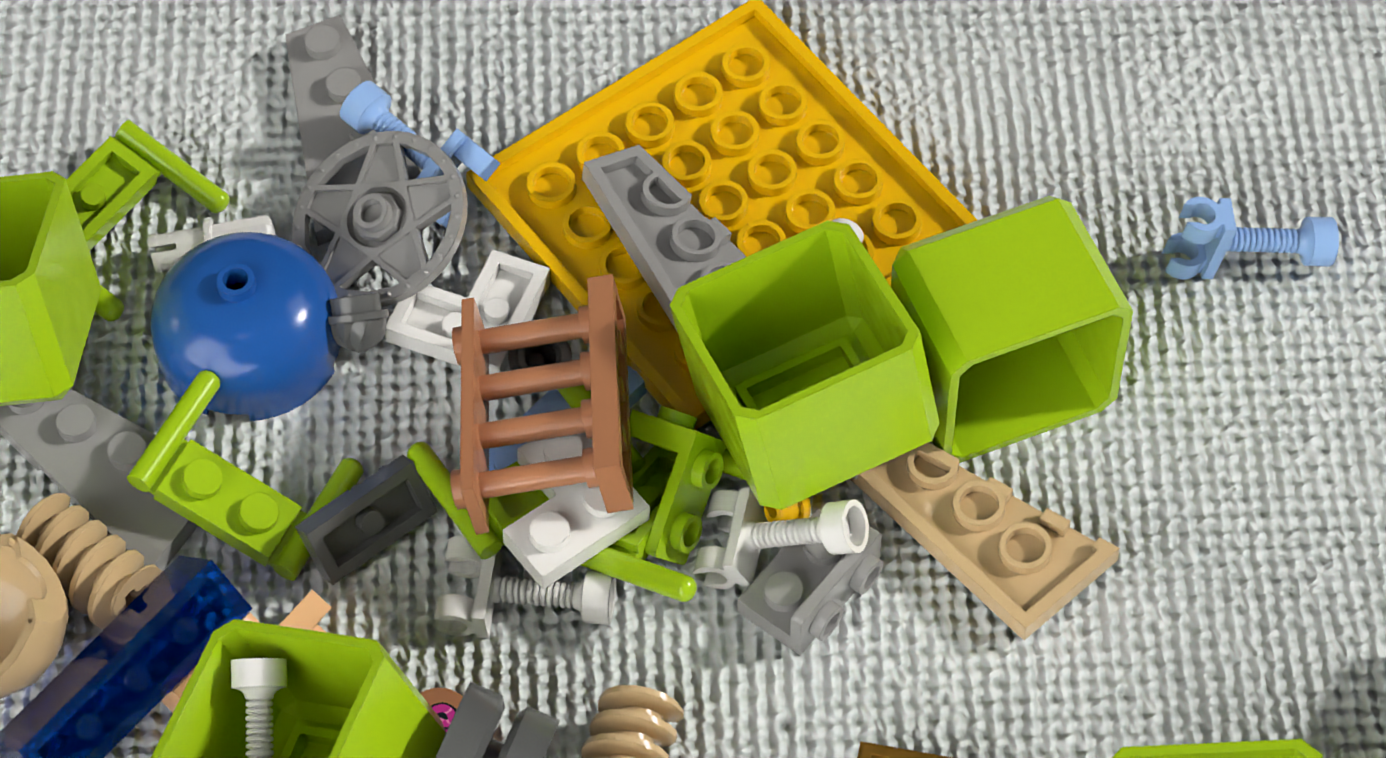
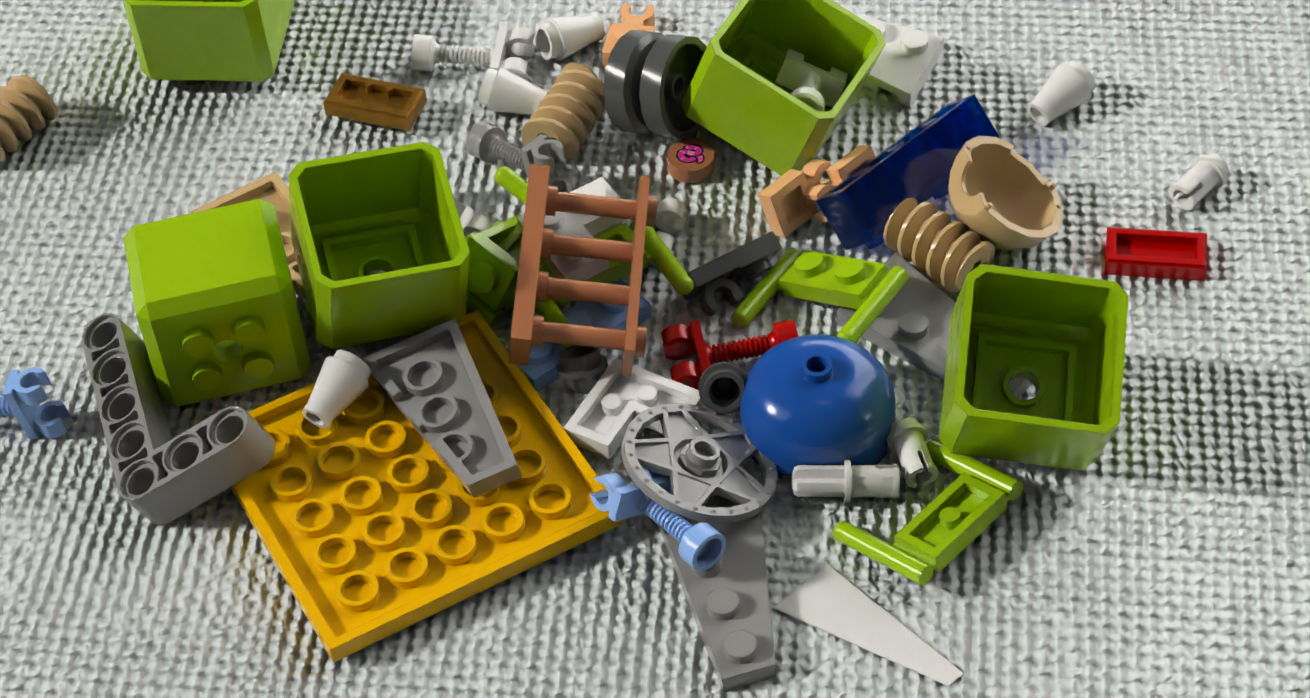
camera: 170 degrees left, 10 degrees down
(132, 286) = (909, 443): none -> white pin
(214, 119) = (846, 612): none -> white sticker
(403, 367) = (683, 341): none -> red bar
(730, 713) = (489, 143): none -> light grey bar
(1021, 162) = (150, 468): none -> light grey beam

